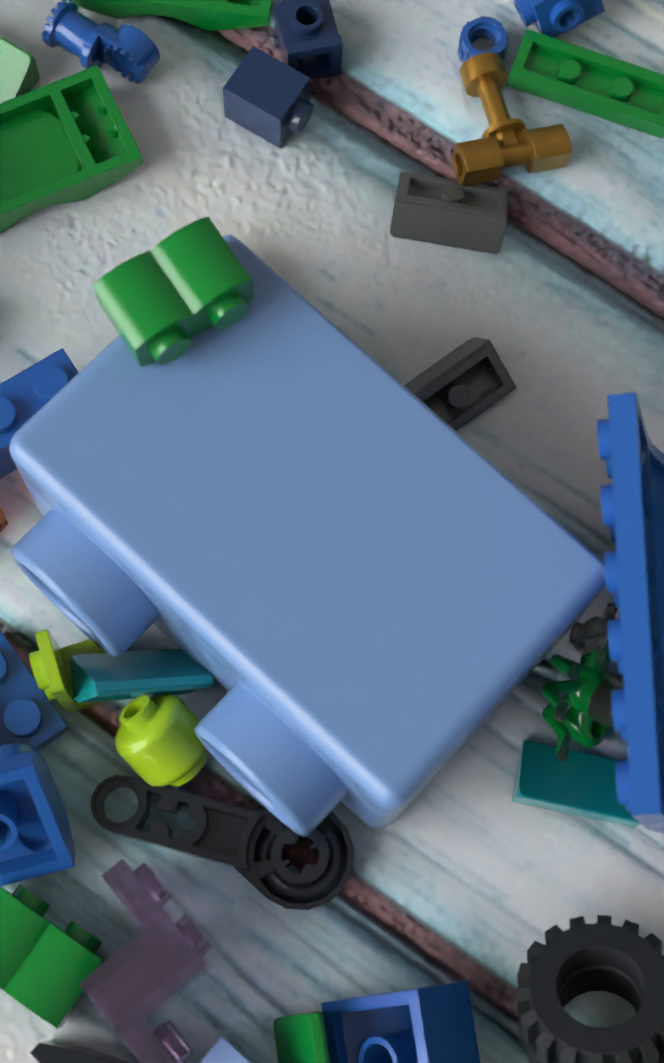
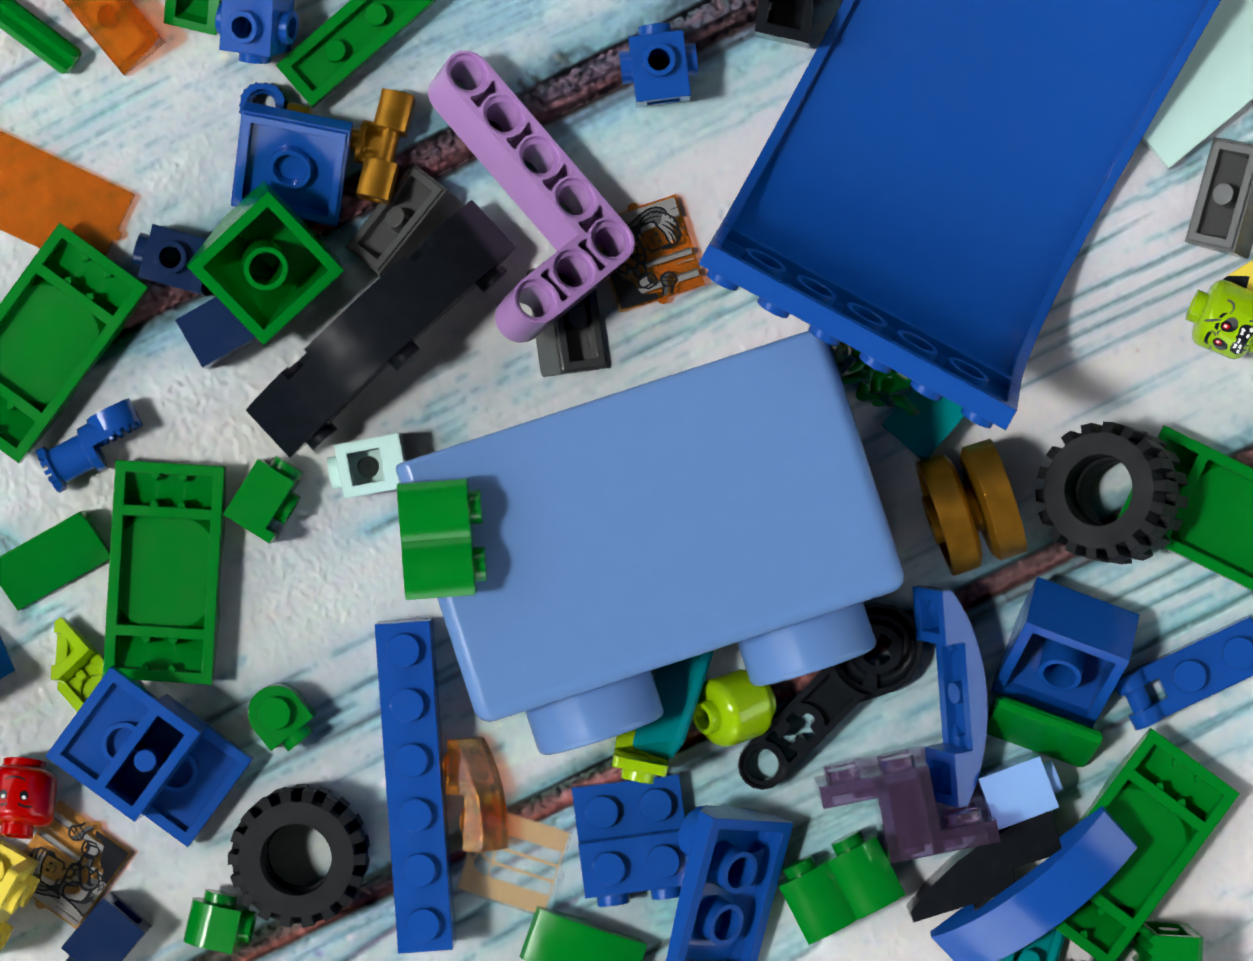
camera: 60 degrees left, 15 degrees up
(132, 207) = (266, 497): none -> green brick
(225, 1006) = (962, 694): none -> blue slope
(349, 90) = (264, 263): none -> green slope
(352, 214) = (381, 329): none -> black brick
(449, 80) = (297, 156): none -> blue tile
(504, 870) = (963, 509): none -> pearl gold wheel
(543, 352) = (534, 193): none -> lavender beam
(550, 434) = (661, 258): none -> piece

